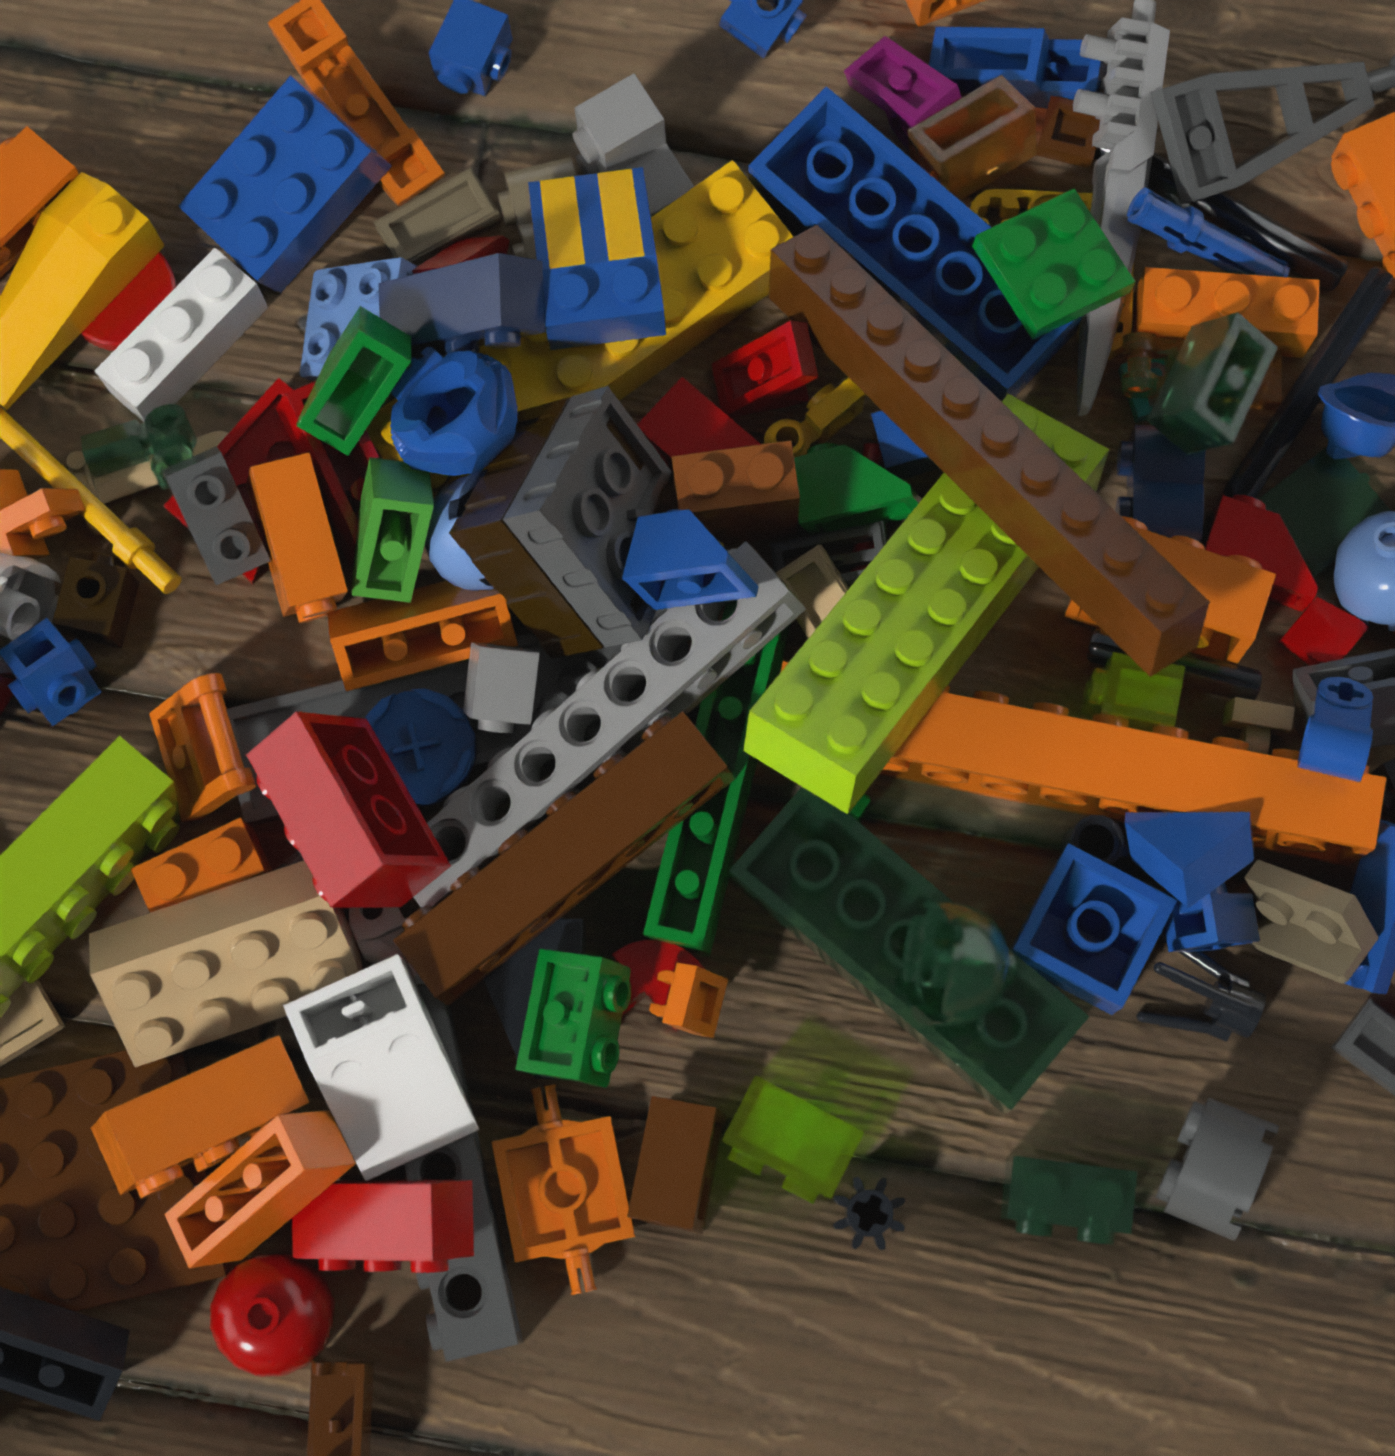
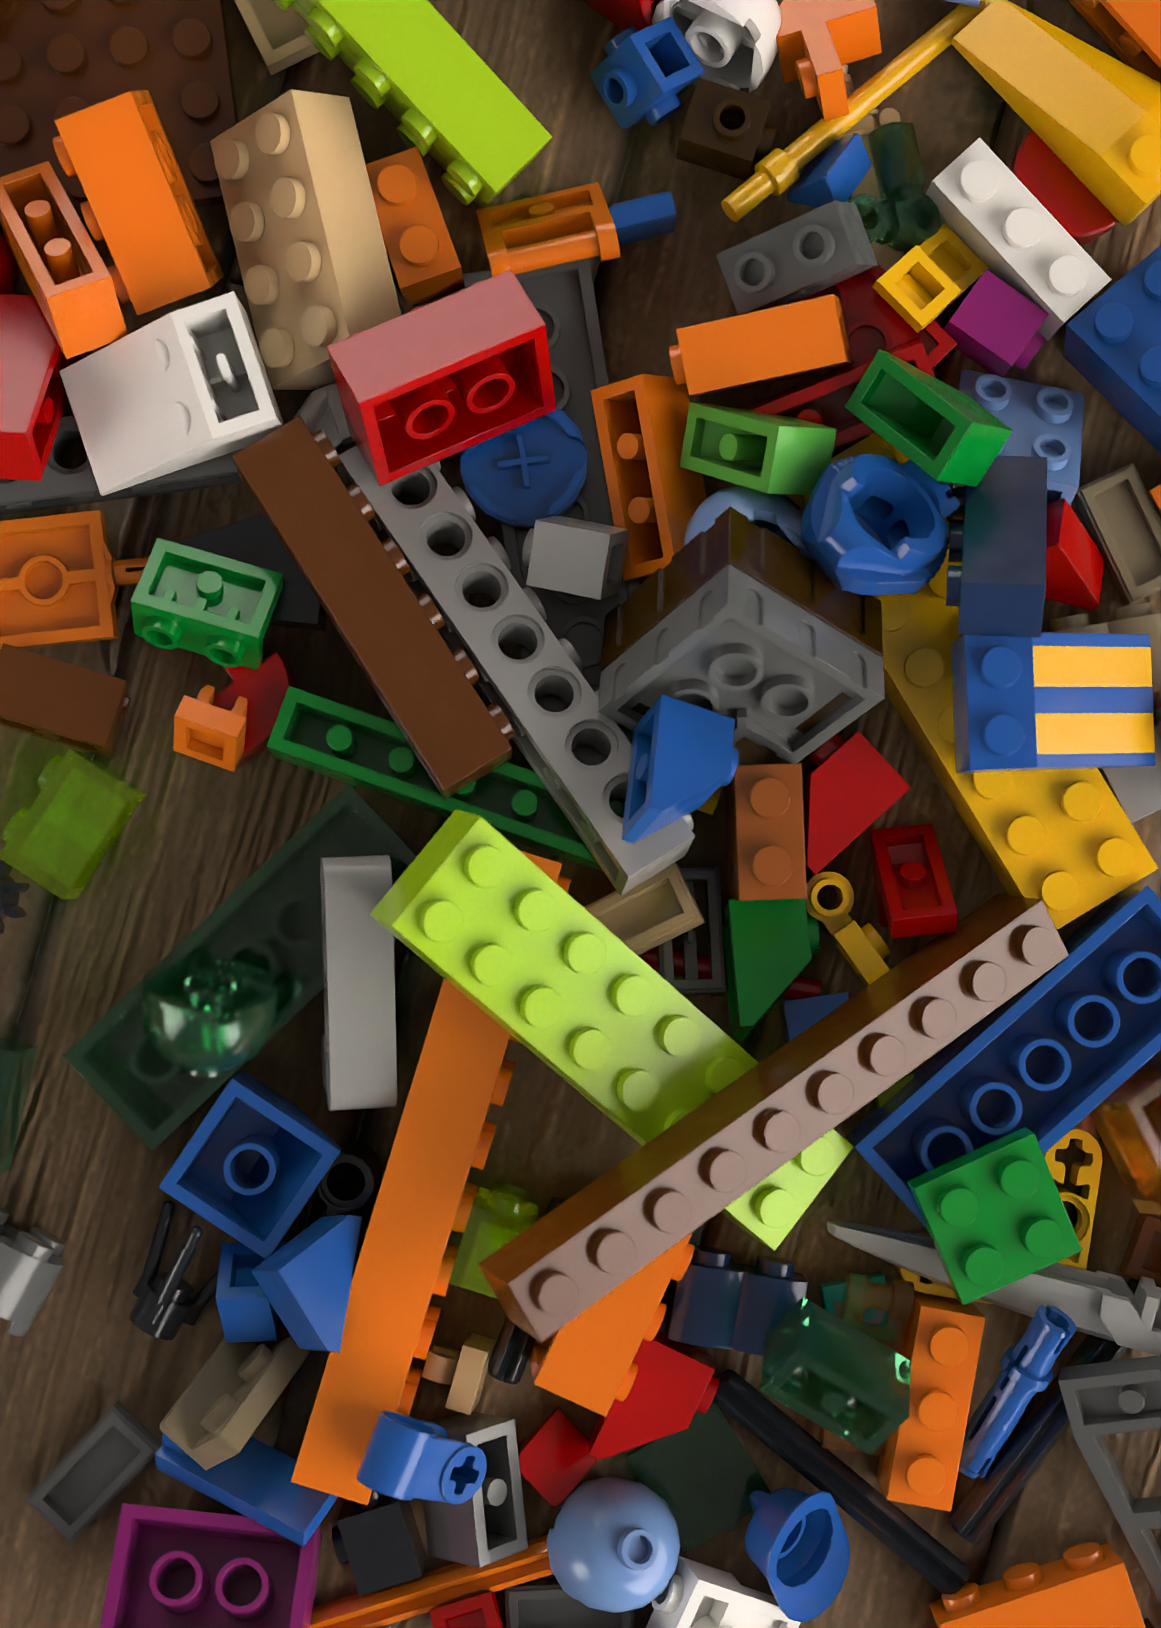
camera: 90 degrees right, 10 degrees up
(133, 500) = (832, 173): none -> blue slope
(178, 659) = (644, 217): none -> blue tile
(222, 405) = (930, 278): none -> yellow slope
(259, 347) = (997, 326): none -> magenta brick
(964, 832) = (357, 985): none -> light grey beam

